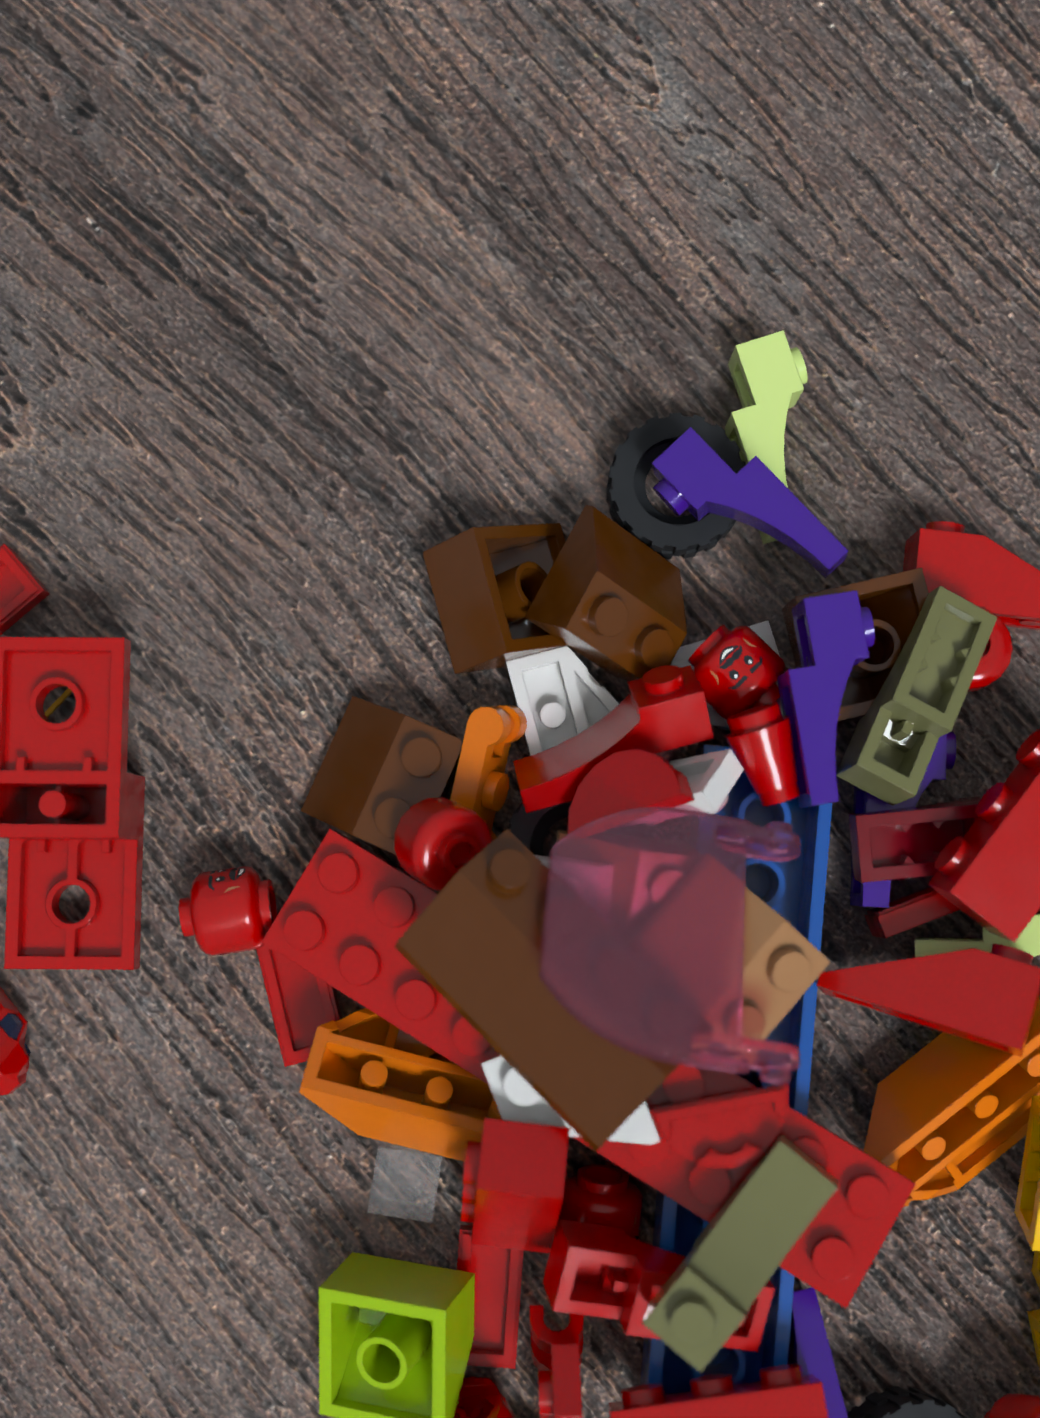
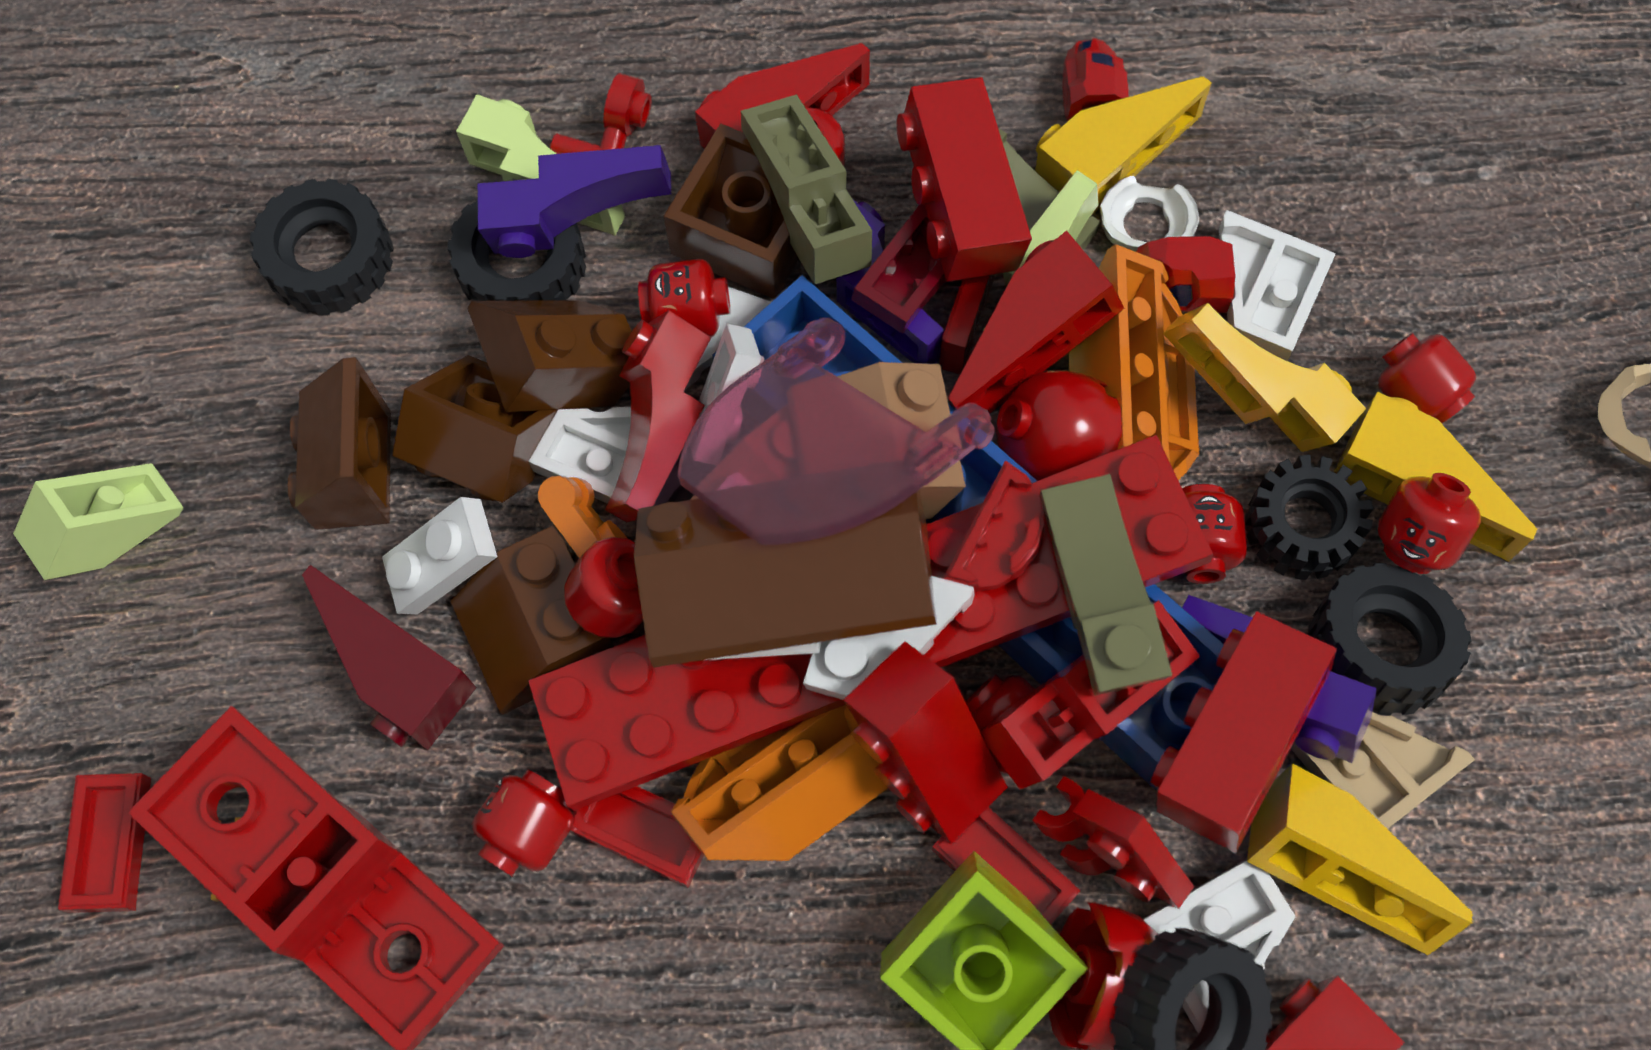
camera: 50 degrees left, 15 degrees down
(192, 368) = (93, 518): none -> yellowish green slope
(262, 706) = (390, 669): none -> dark red slope
(373, 665) = (439, 556): none -> white plate
(393, 508) = (341, 450): none -> reddish brown slope
(405, 1183) = (860, 862): clear tile -> none
(551, 274) = (308, 207): none -> black tyre
(627, 782) = (684, 401): red tile -> none
(766, 751) = (752, 305): red cone -> none
(831, 640) = (712, 206): dark purple slope -> none
(873, 1078) = (1058, 422): none -> red cylinder
(882, 457) = (624, 110): none -> red plate
(900, 1260) = (1223, 527): none -> red head
(1002, 1349) = (1330, 491): none -> black tyre

